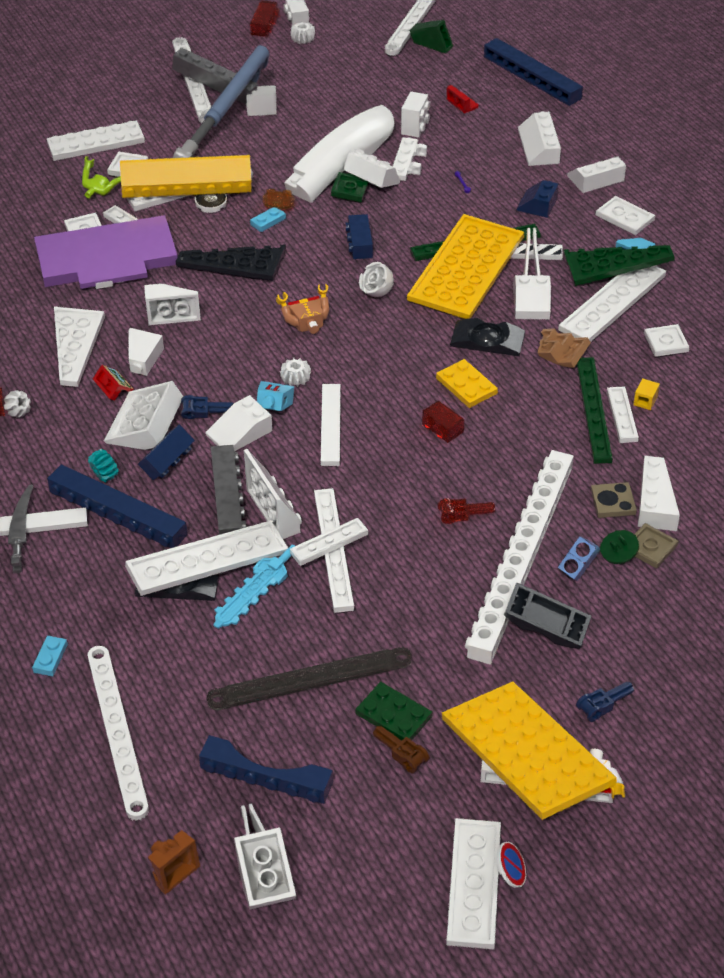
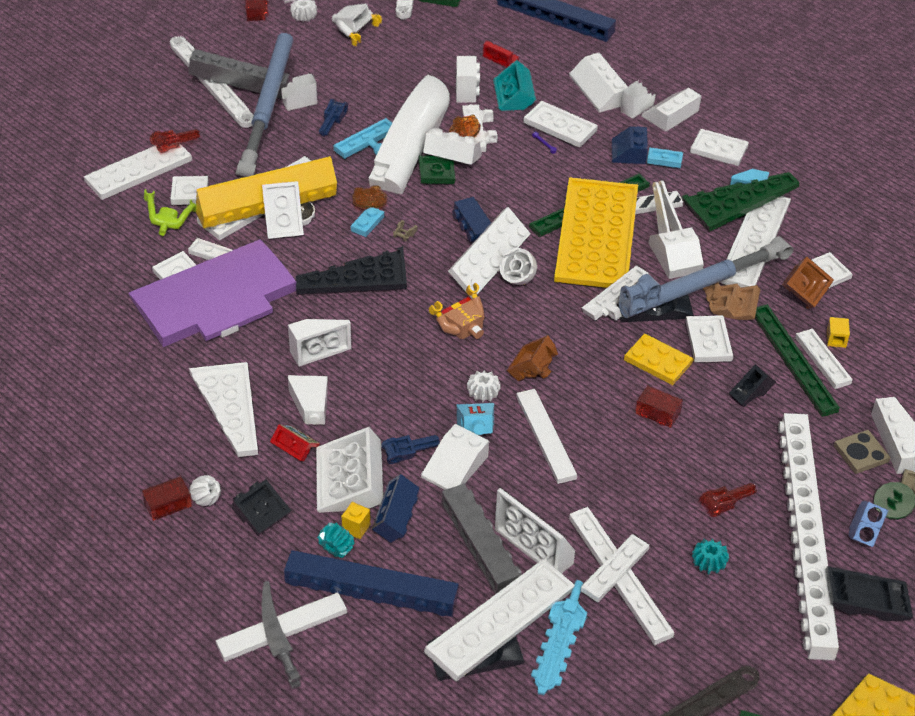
camera: 20 degrees left, 0 degrees up
(56, 426) = (260, 507): none -> black plate
(128, 454) = (356, 520): none -> yellow brick
(130, 121) = (170, 140): none -> clear red connector
(193, 193) = (282, 209): none -> white plate
(284, 124) = (333, 114): none -> dark blue connector
(293, 151) = (363, 139): none -> medium azure plate
(297, 235) = (410, 232): none -> dark tan piece
(342, 46) = (354, 17): none -> white torso
(345, 269) = (484, 256): none -> white plate
(349, 359) = (533, 359): none -> dark orange brick
(393, 155) = (466, 126): none -> clear orange tile
(421, 553) = (710, 556): none -> teal gear
(458, 130) = (514, 88): none -> teal slope
(463, 315) = (607, 301): none -> white hinge
(473, 322) = (649, 294): none -> sand blue piece
(484, 168) = (560, 124): none -> white plate
(521, 375) = (709, 338): none -> white plate
(540, 420) = (752, 385): none -> black arch
(565, 159) = (636, 100): none -> white piece
(566, 214) = (665, 157): none -> medium azure plate
(637, 344) = (808, 282): none -> dark orange brick

